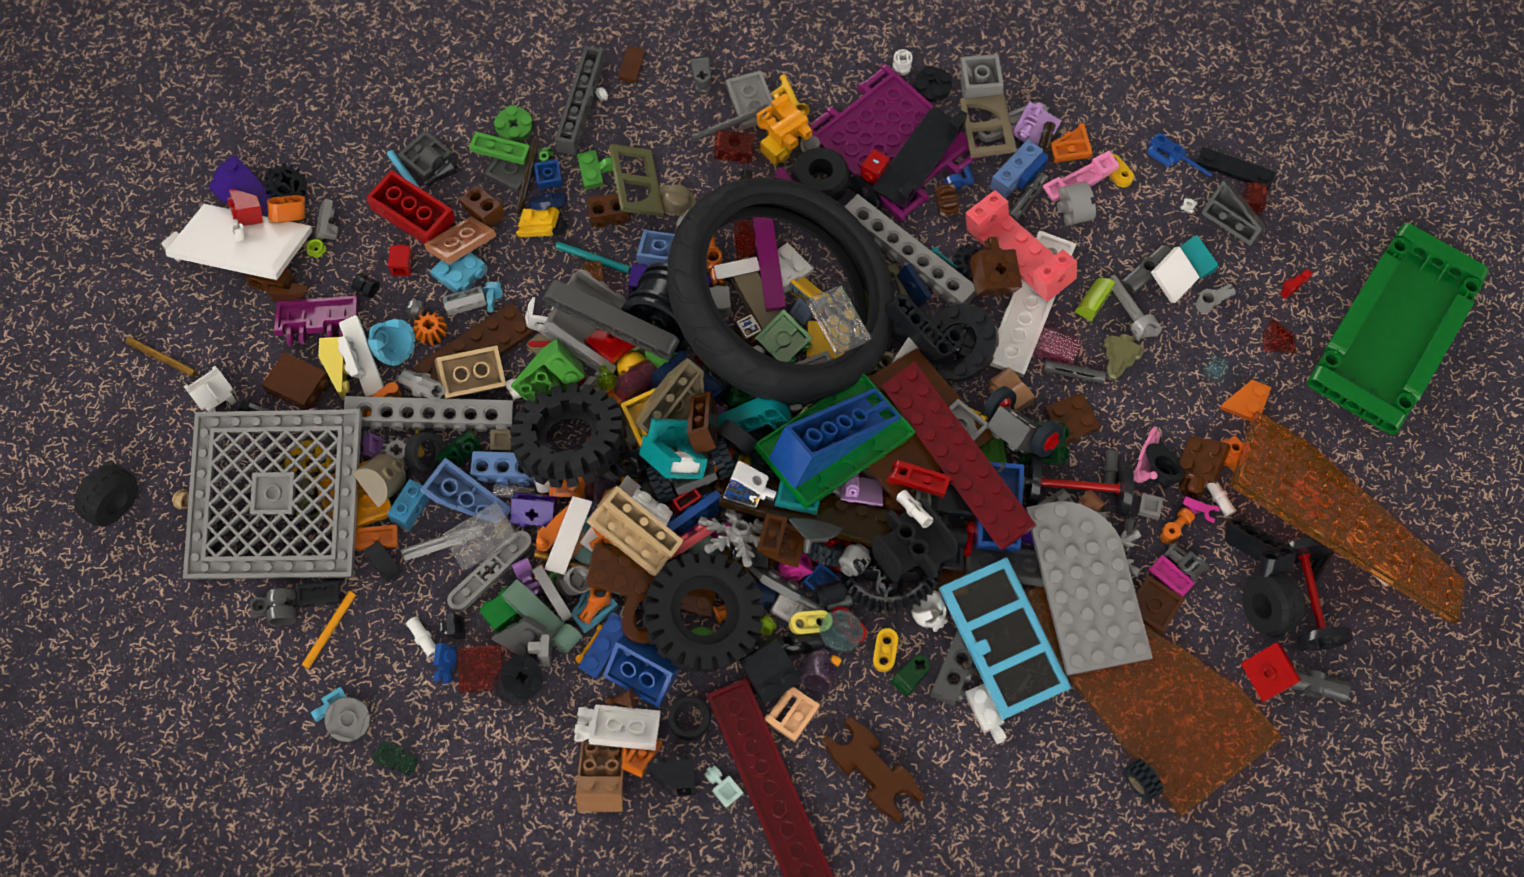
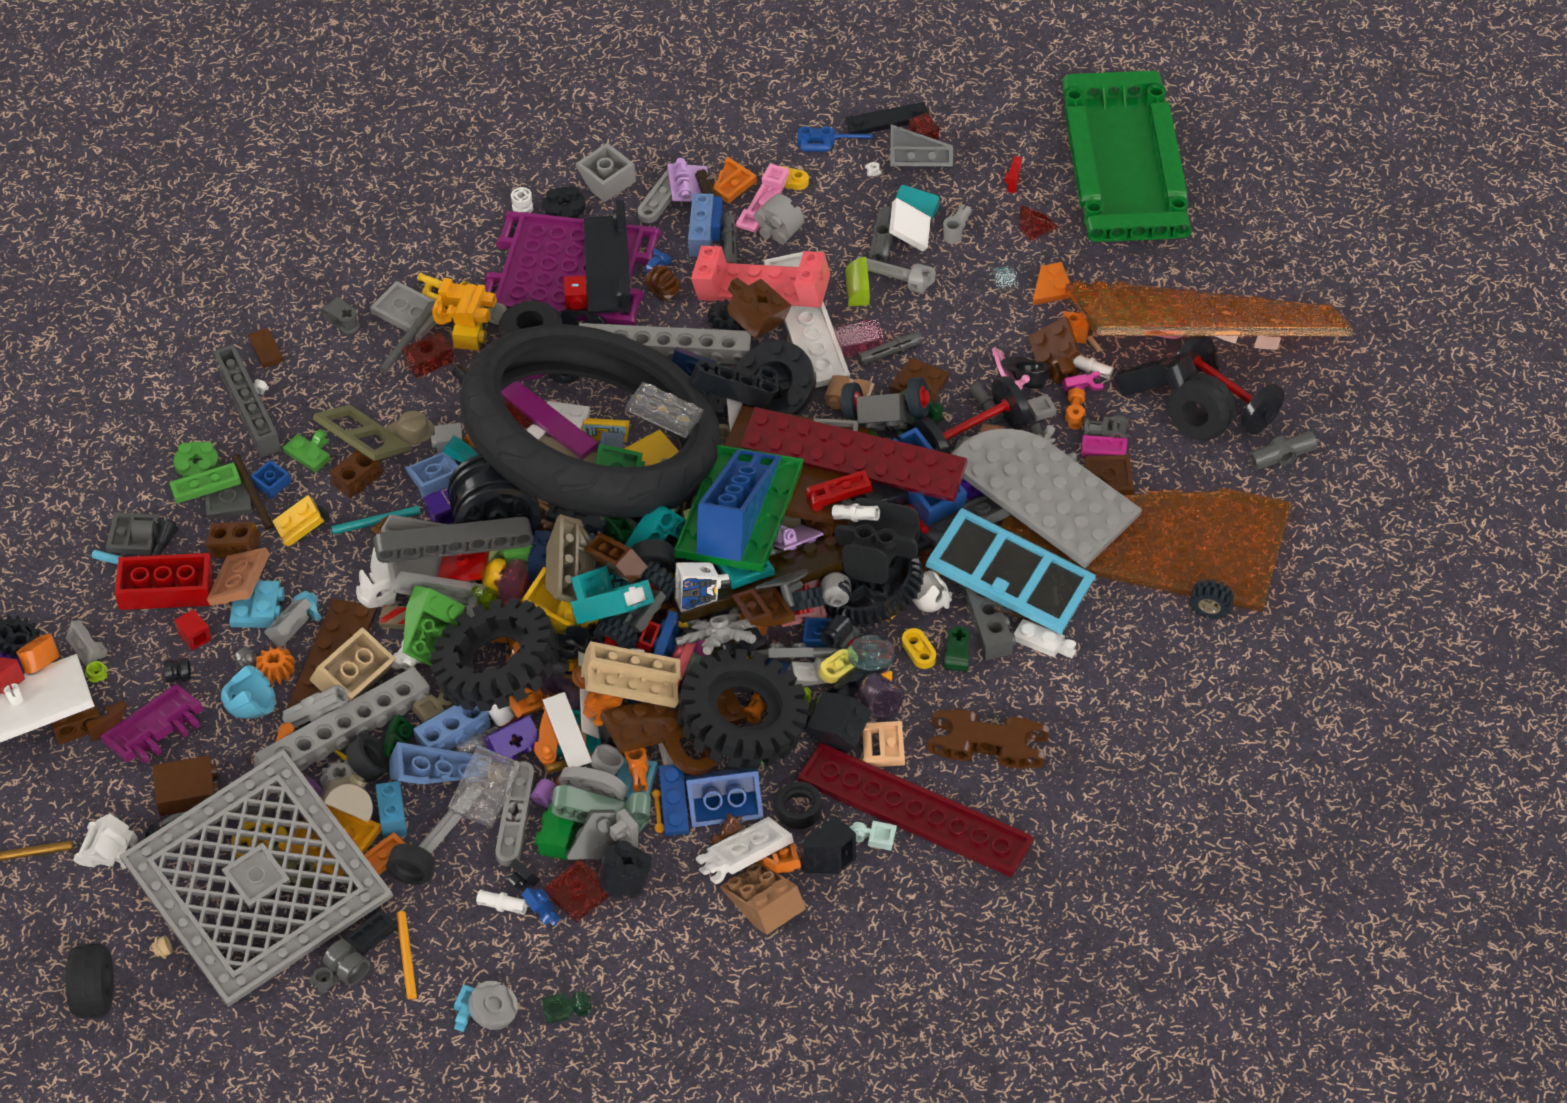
camera: 35 degrees left, 15 degrees down
(334, 364) = (202, 740): light yellow slope -> none
(358, 356) = (229, 722): white bracket -> none
(545, 153) = (252, 464): bright green arm -> none
(547, 200) = (293, 496): dark blue plate -> none
(796, 573) = (785, 634): dark pink brick -> none
(997, 105) = (641, 186): dark tan window -> none
(1121, 353) = (917, 311): olive rock -> none
(1271, 672) = (1242, 461): red plate -> none

